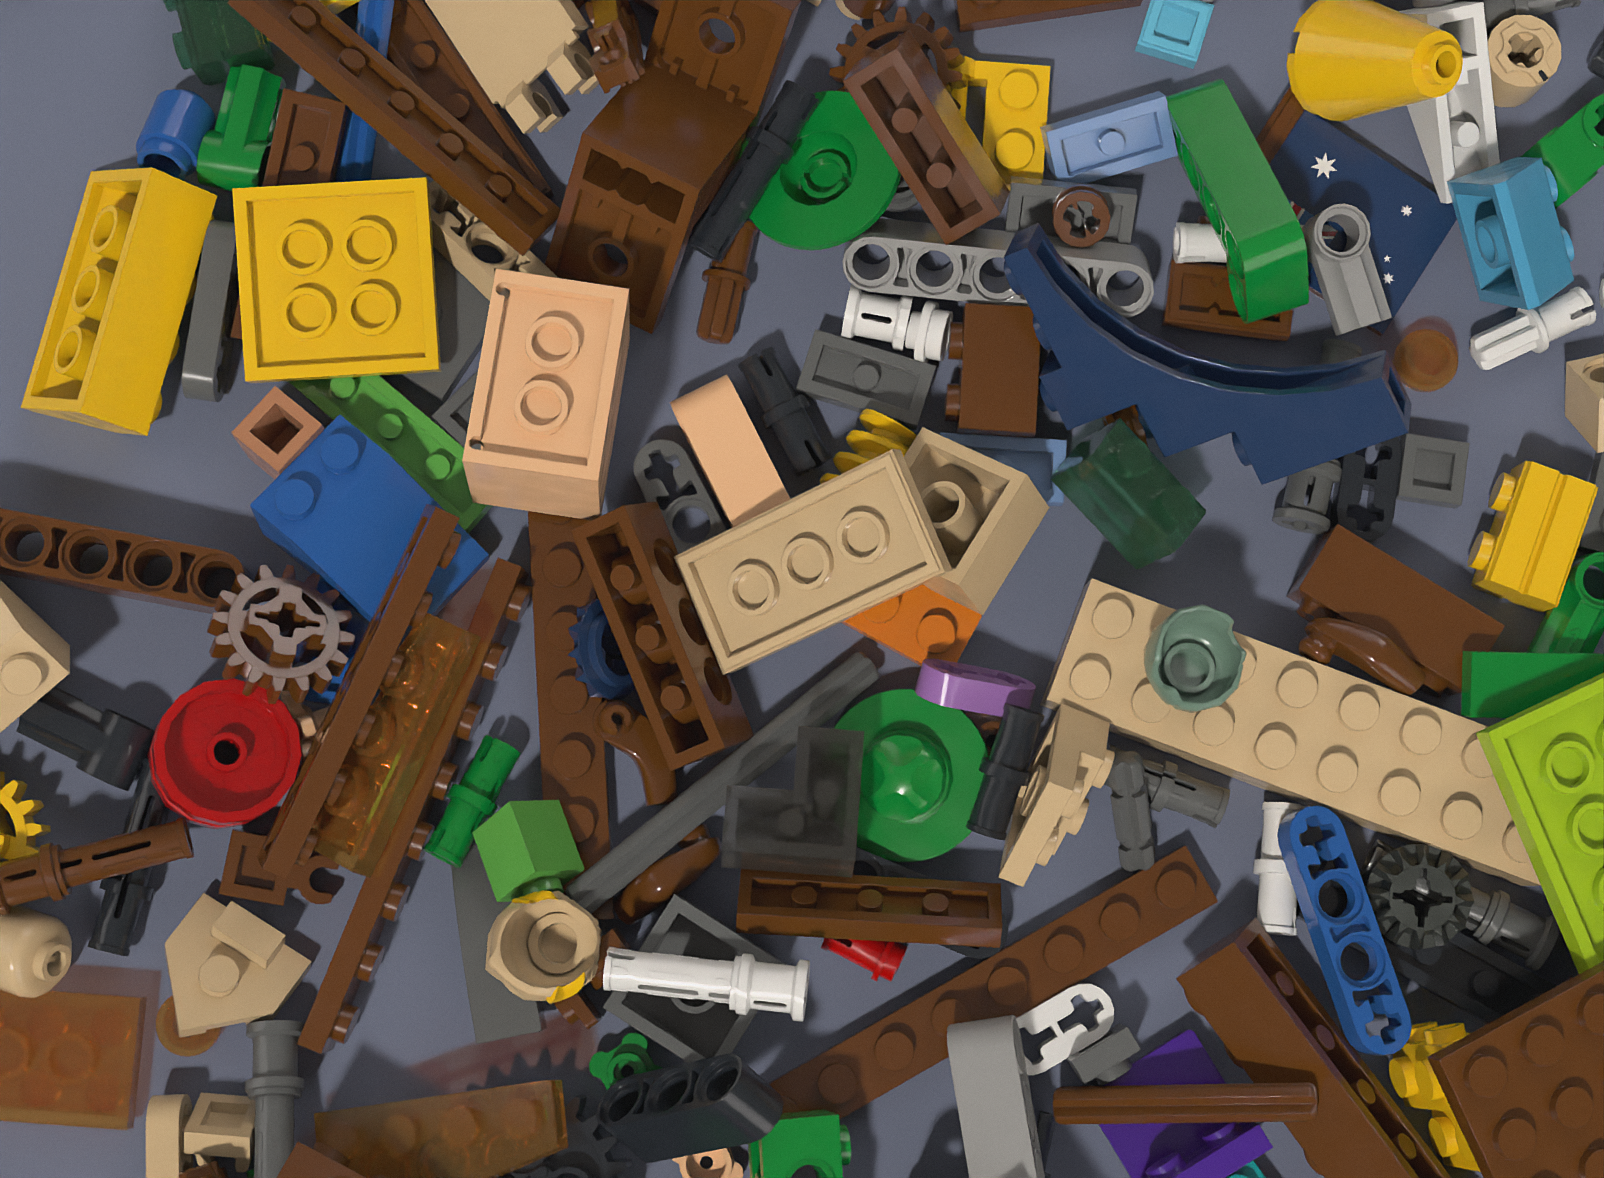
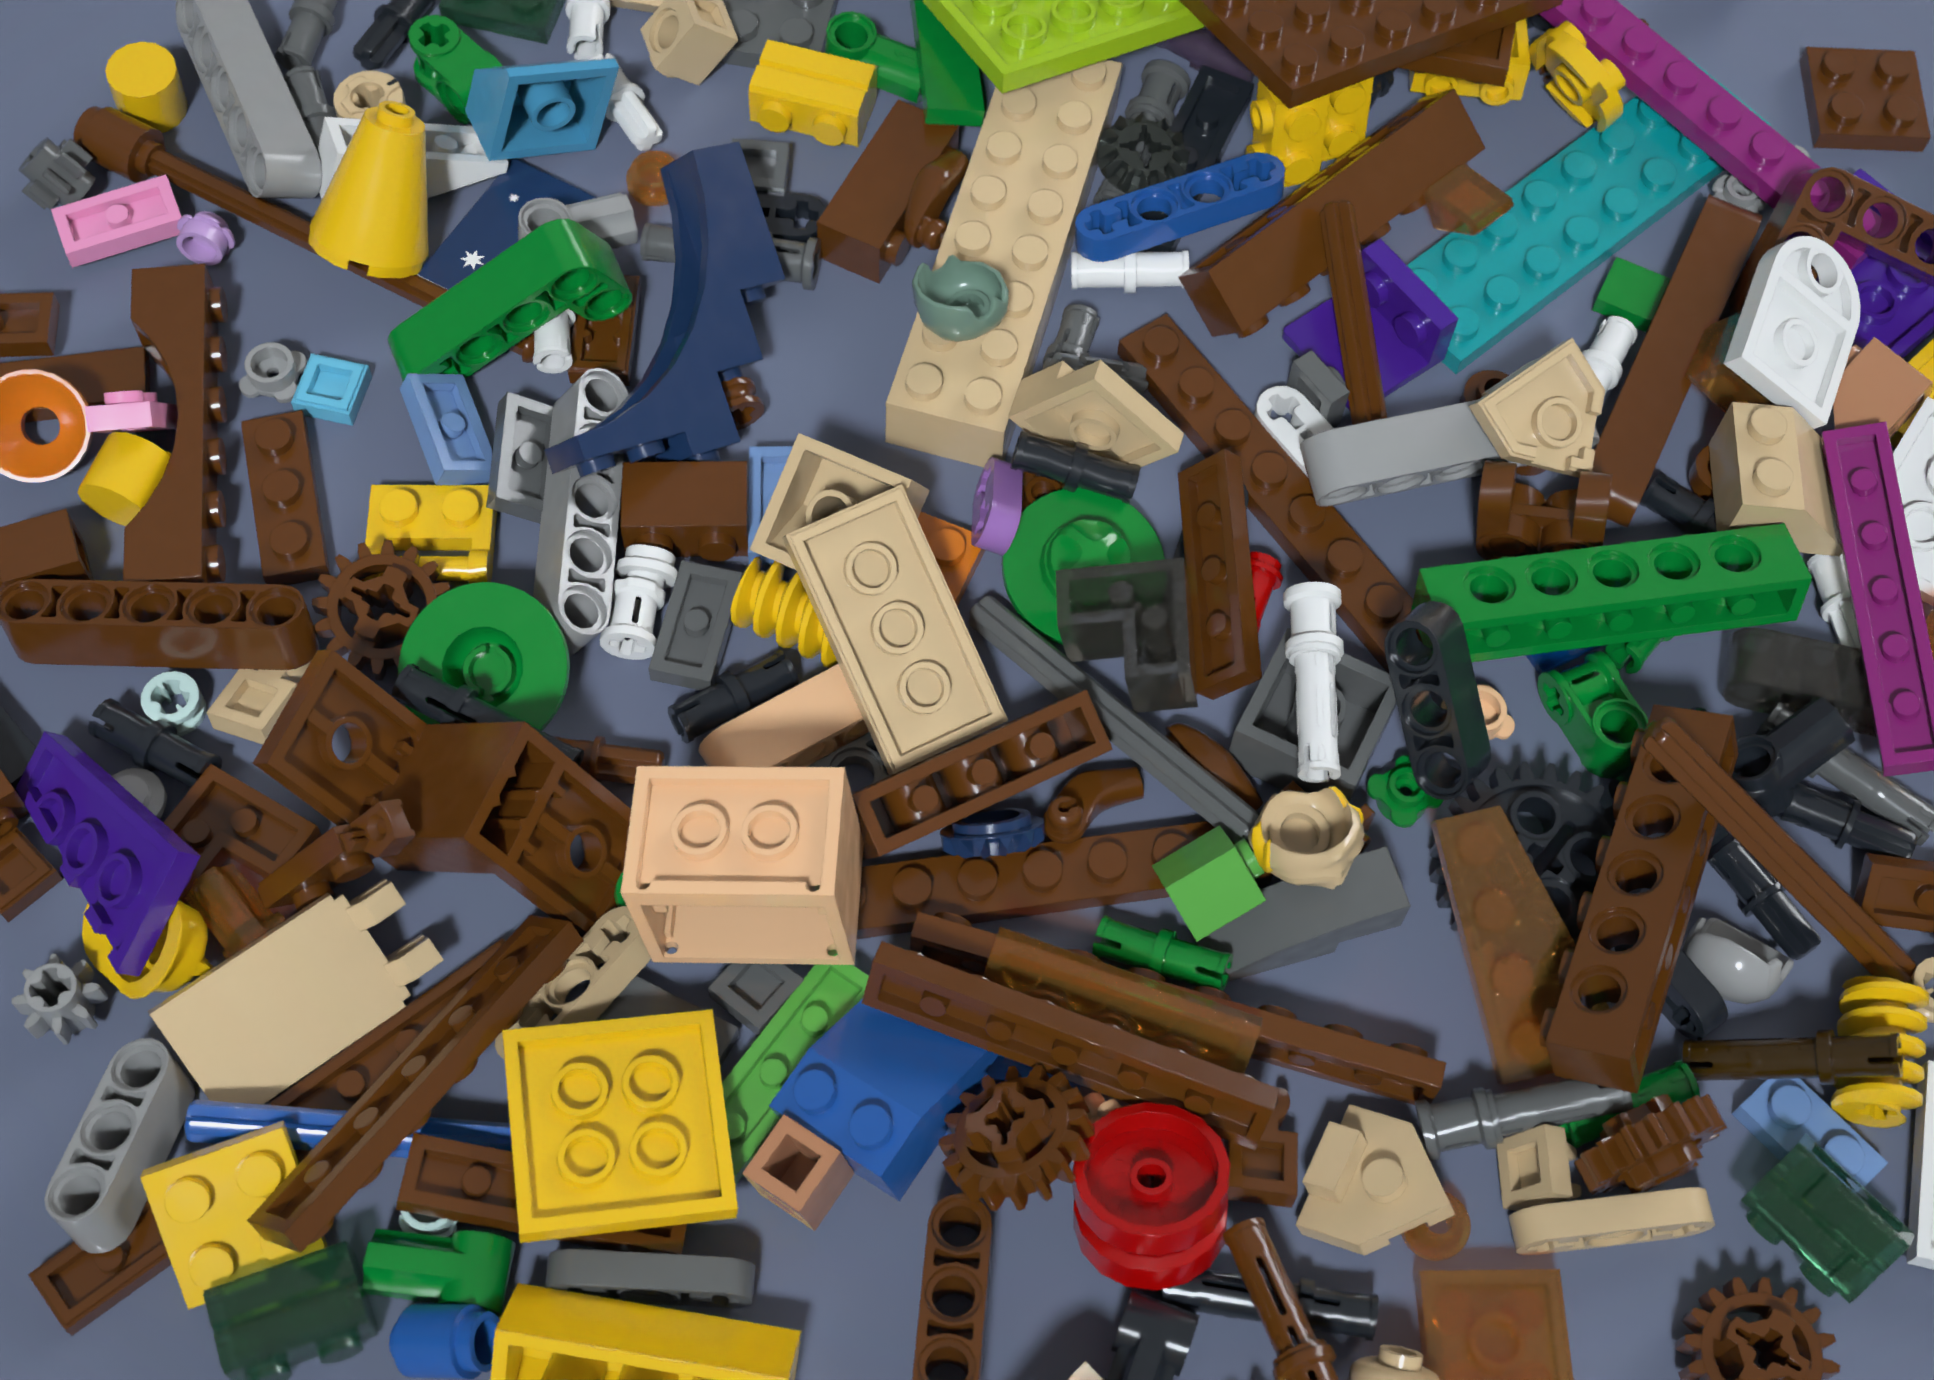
camera: 100 degrees left, 20 degrees down
(927, 137) = (455, 549): reddish brown brick -> none
(1099, 210) = (538, 421): reddish brown bush -> none
(1128, 494) = (800, 384): clear green brick -> none

